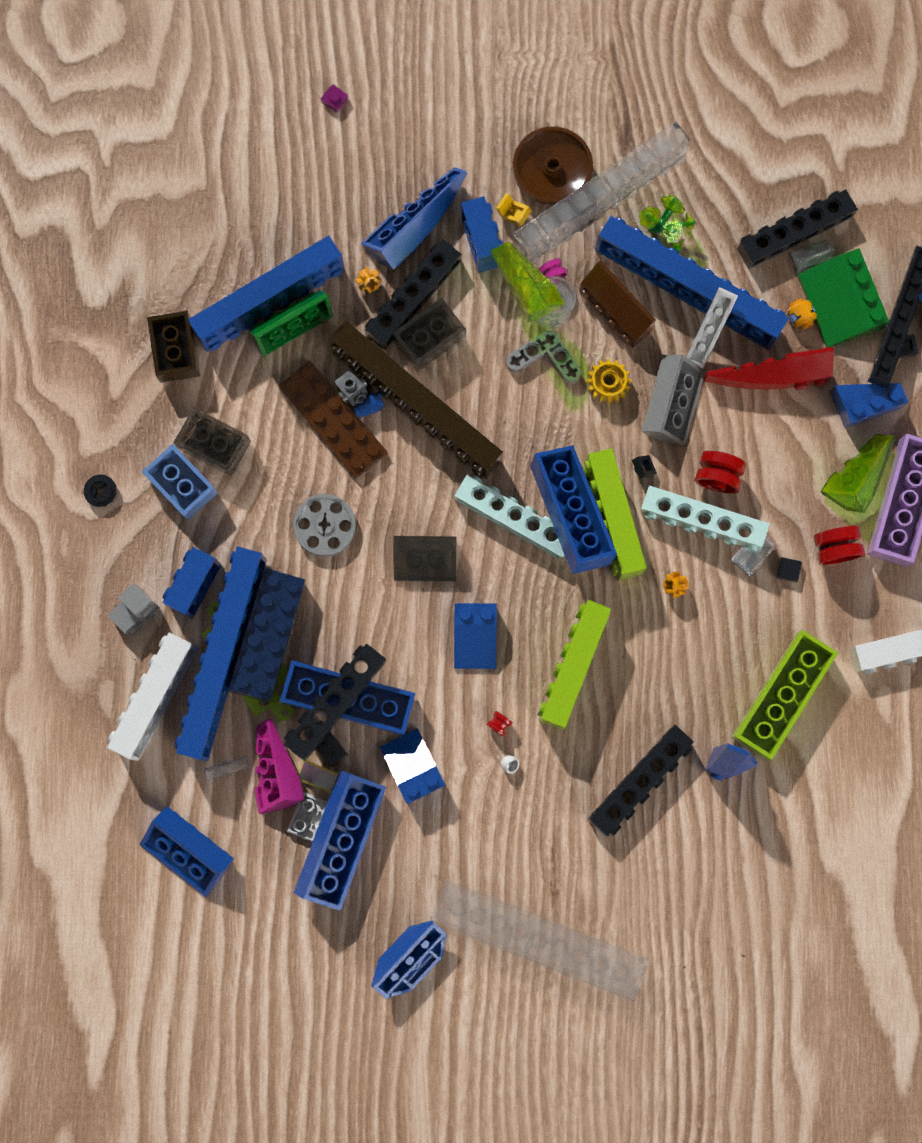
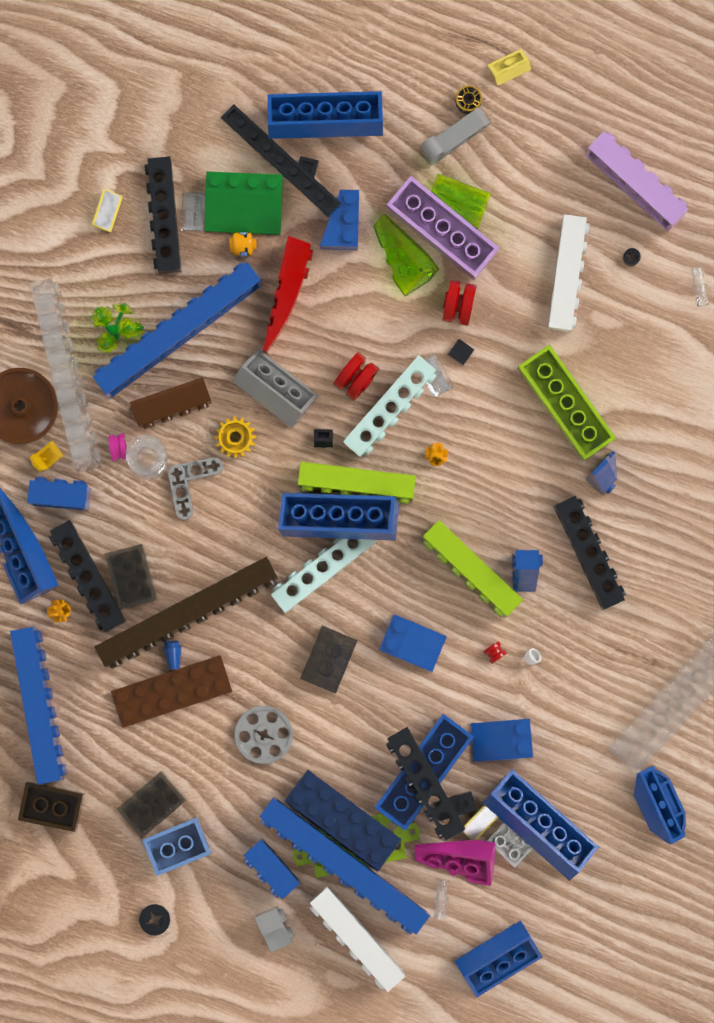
camera: 70 degrees left, 5 degrees up
(292, 322) = (70, 694): green slope -> none
(352, 388) = (153, 663): dark grey brick -> none
(531, 289) = (129, 473): clear neon green wedge -> none
(597, 719) = (526, 569): none -> blue wedge
(711, 327) = (227, 331): white tile -> none
(777, 174) = (107, 210): none -> flat silver slope

